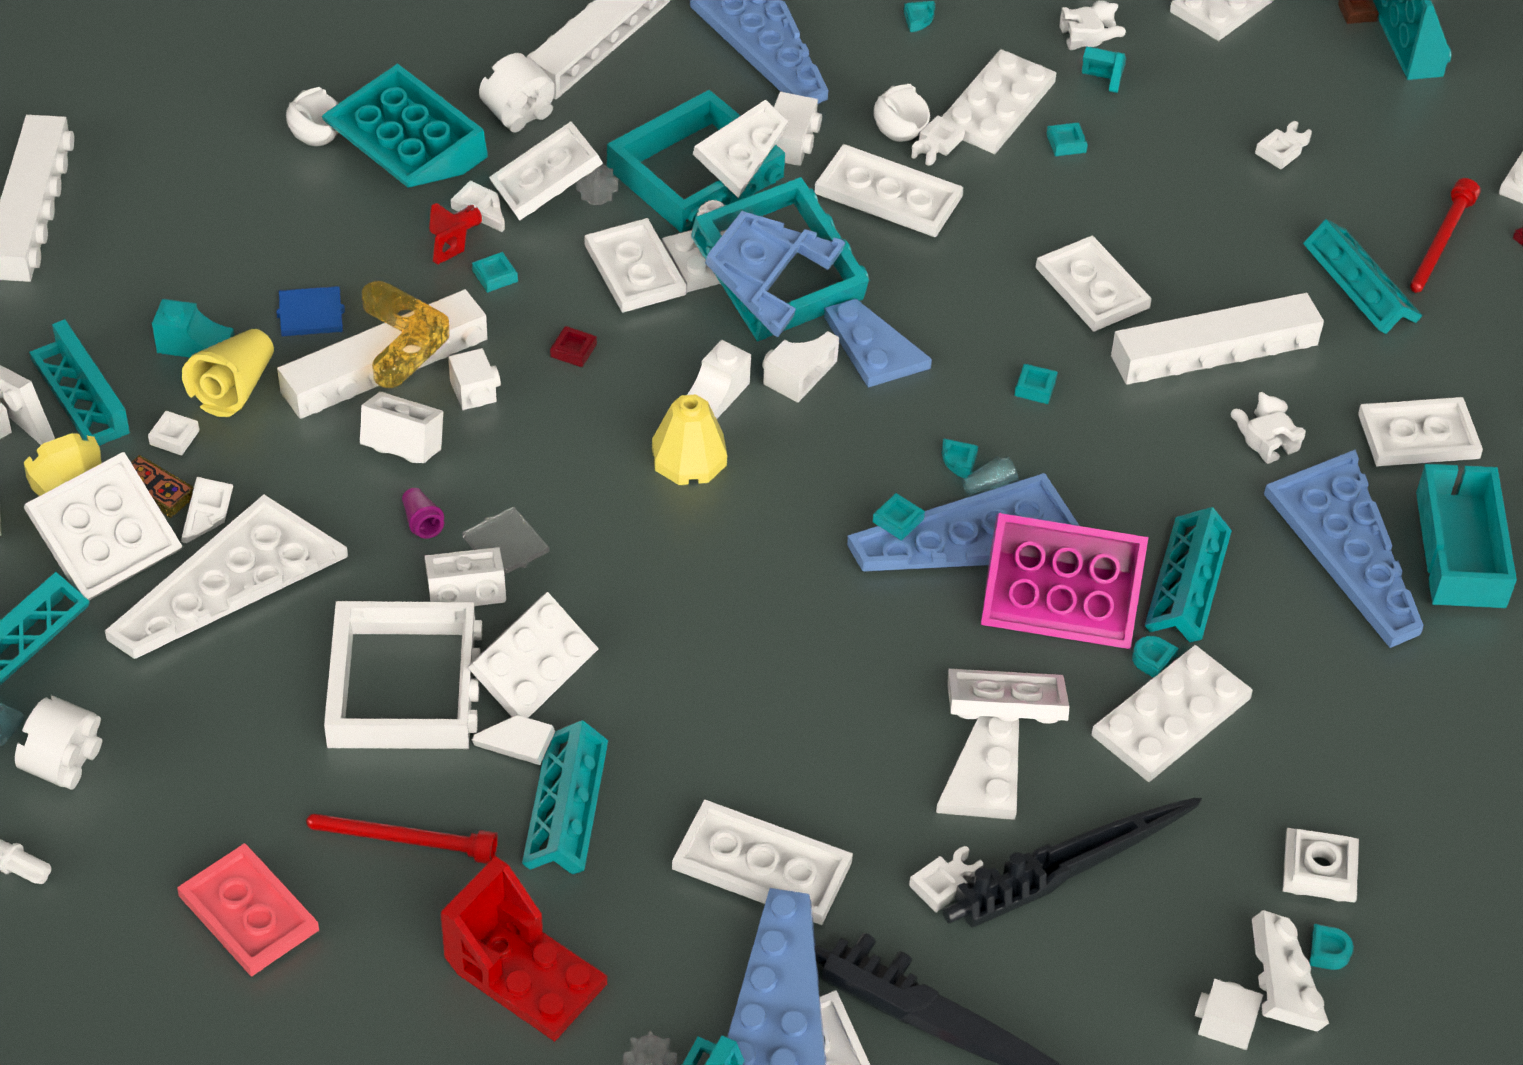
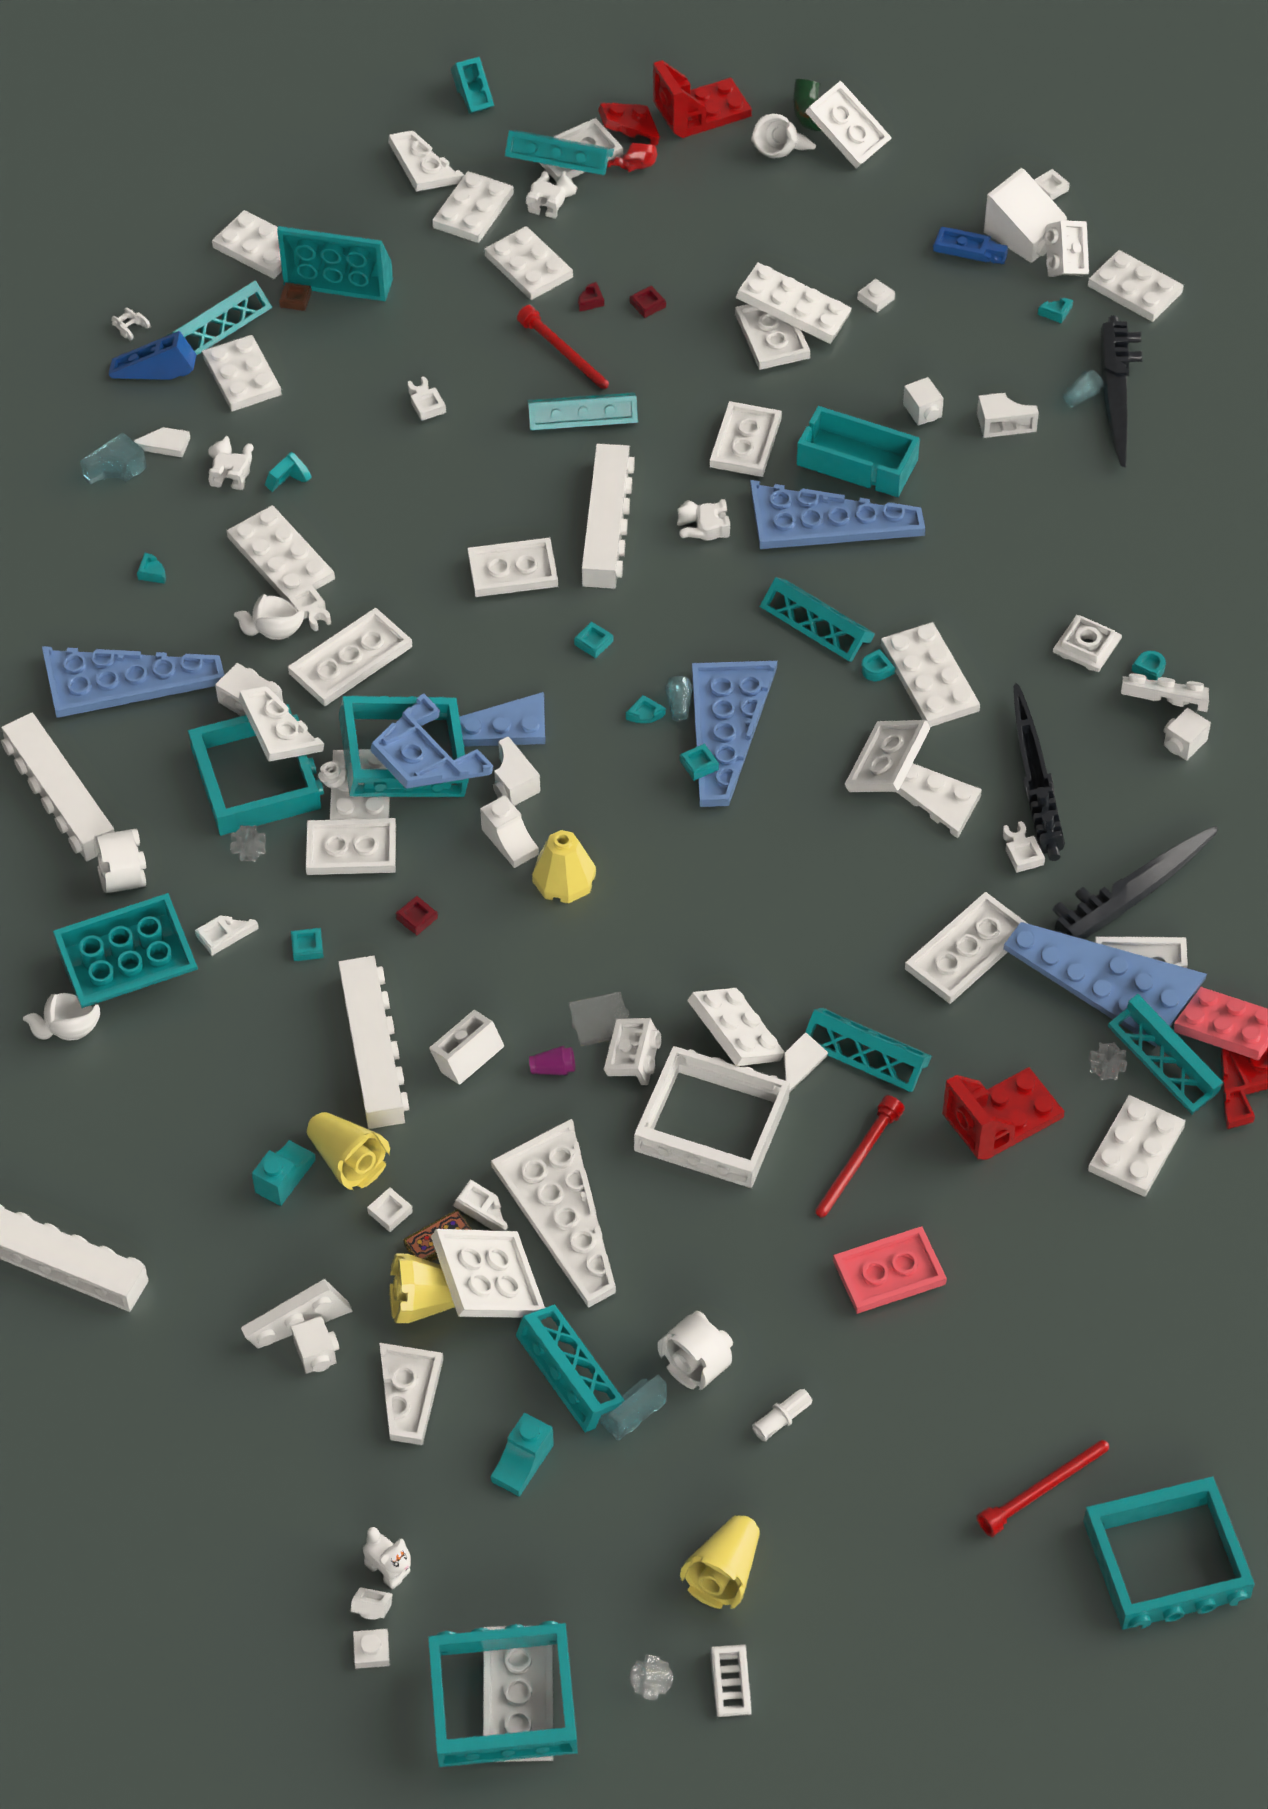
camera: 65 degrees left, 5 degrees up
(89, 378) = (302, 1255): teal fence -> none
(310, 311) = (287, 1084): blue piece -> none
(413, 331) = (378, 1003): clear yellow beam -> none
(451, 229) = (249, 957): red bracket -> none
(473, 379) = (429, 988): white brick -> none
(545, 170) = (225, 869): white plate -> none
(1063, 580) = (800, 685): dark pink slope -> none
(1067, 139) = (346, 527): teal tile -> none

